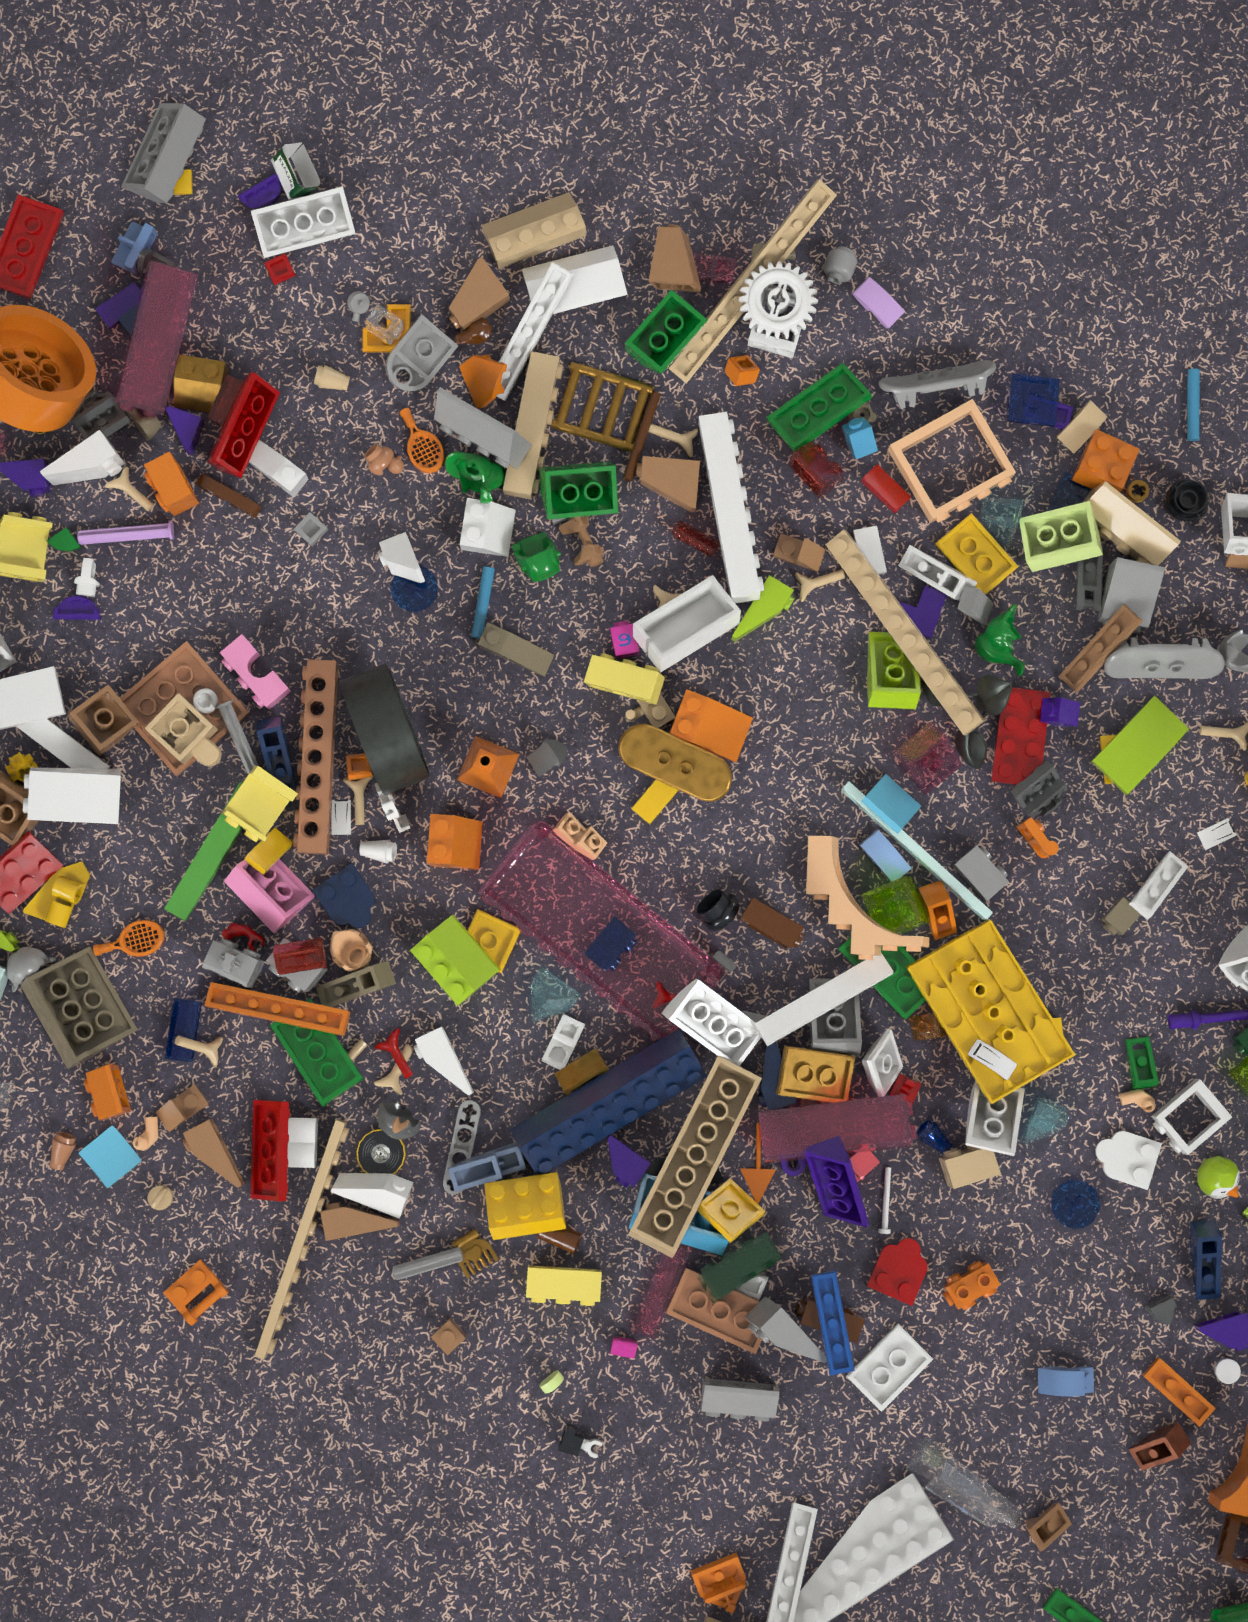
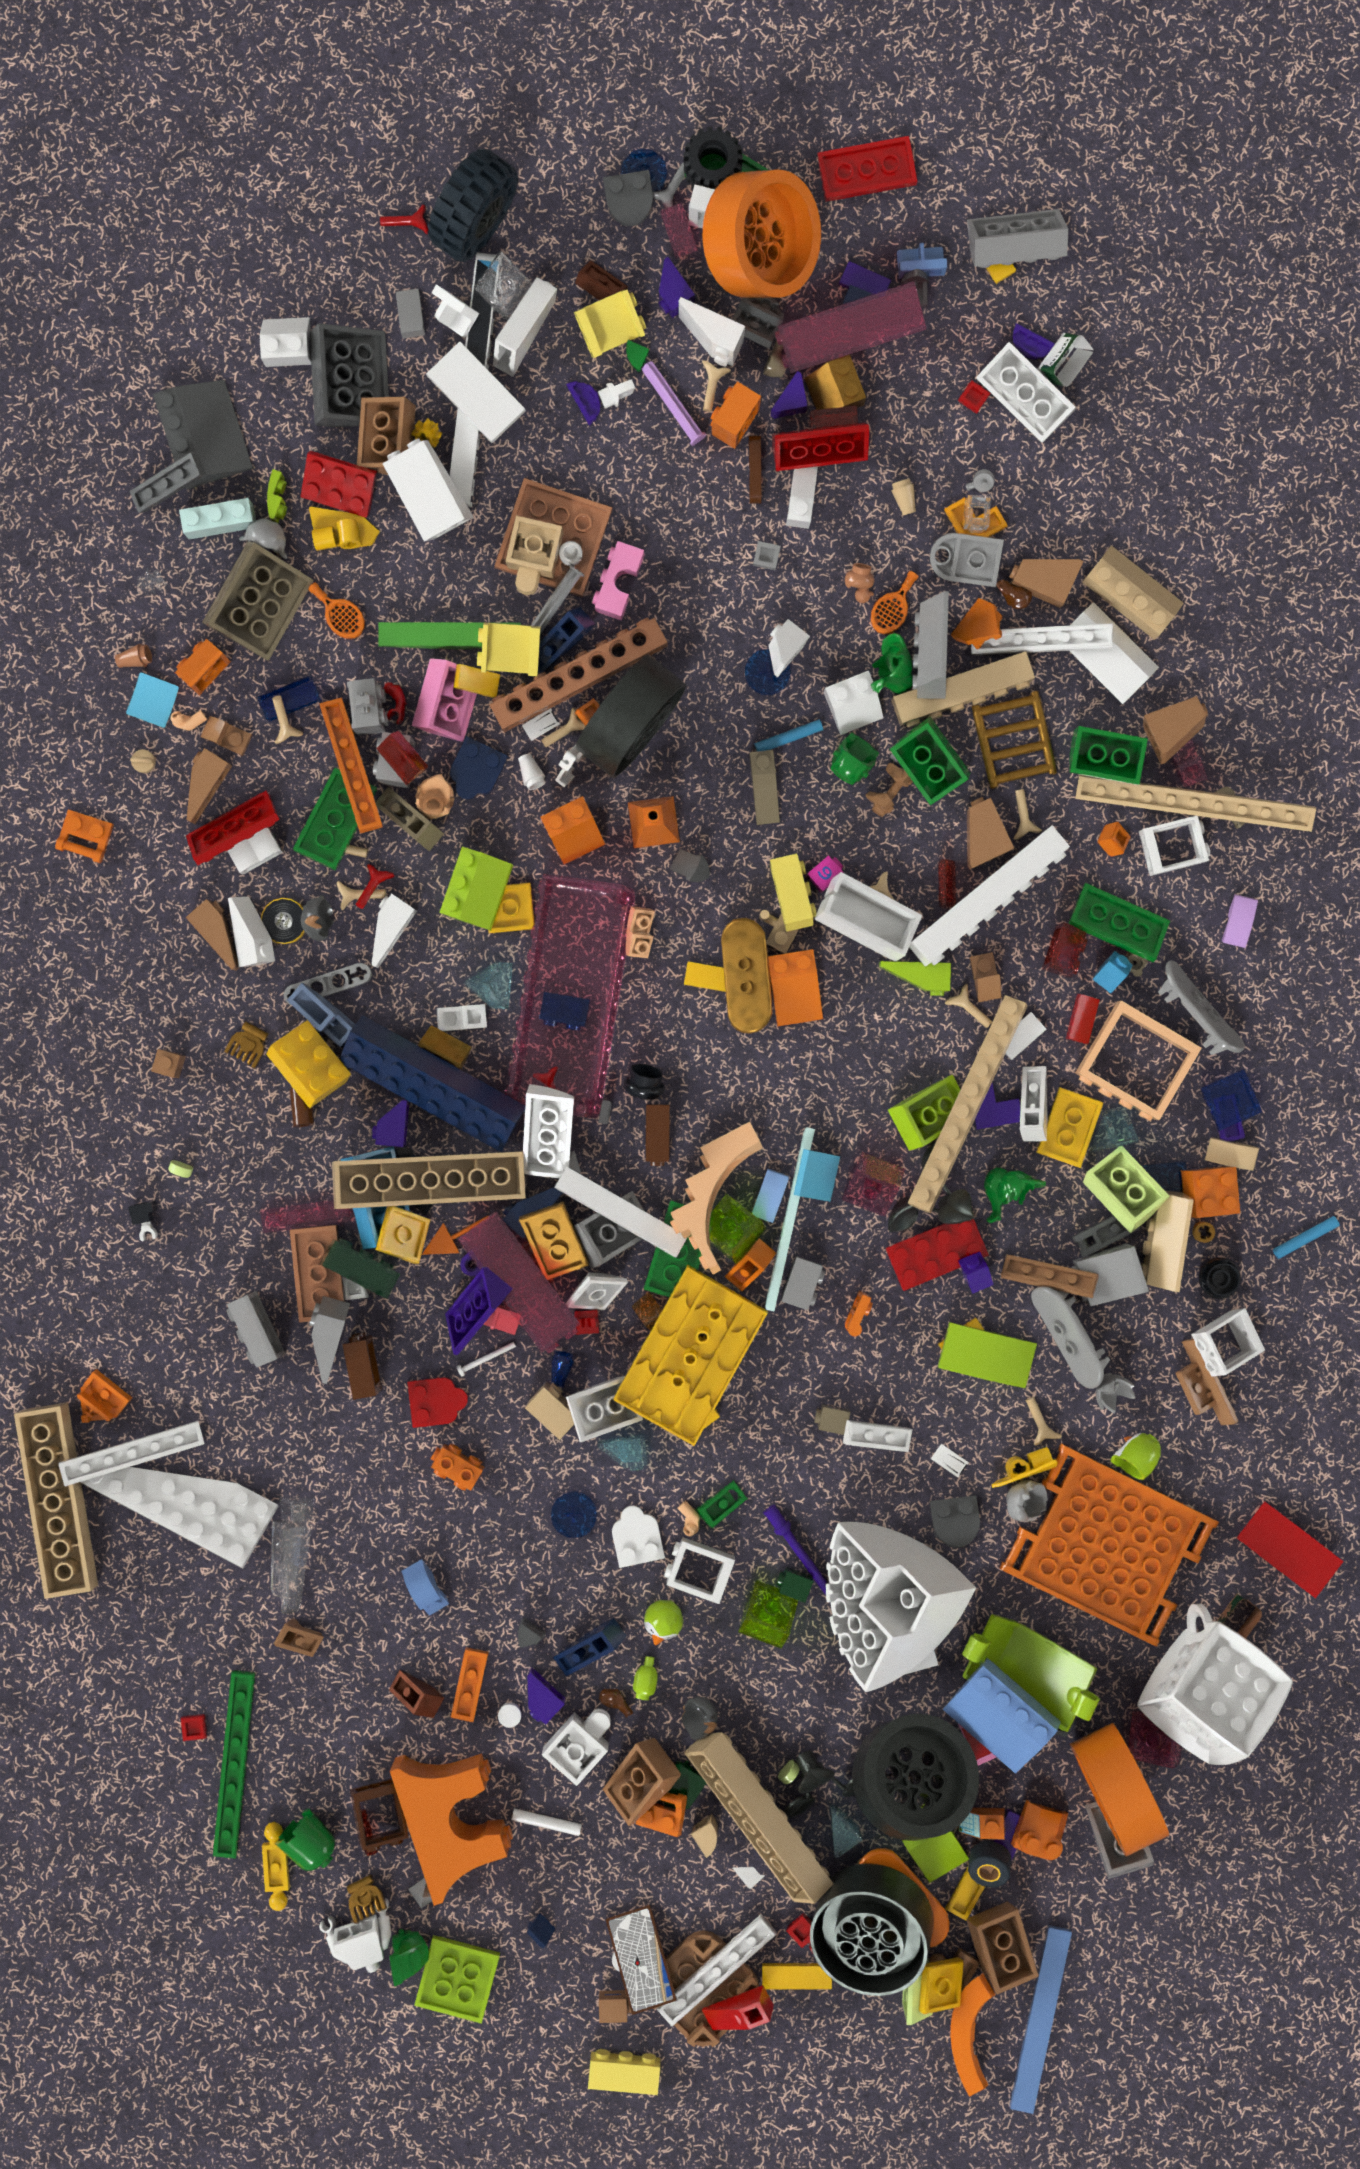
camera: 65 degrees right, 5 degrees up
(103, 720) = (505, 477): medium nougat slope -> none
(299, 1249) = (167, 899): tan plate -> none
(427, 1263) = (216, 1011): light grey axle -> none
(563, 1284) = (264, 1133): light yellow brick -> none
(624, 1347) = (243, 1211): dark pink slope -> none
(641, 436) = (1007, 787): reddish brown bar -> none
(771, 322) = (1167, 839): white gear -> none
(832, 1322) = (357, 1370): blue tile -> none
(840, 265) = (1253, 870): light grey head -> none
(889, 1367) = (352, 1437): white tile -> none
(975, 604) = (1026, 1150): light grey slope -> none
(992, 1059) = (650, 1379): white sticker -> none
(1040, 791) = (899, 1293): dark grey slope -> none

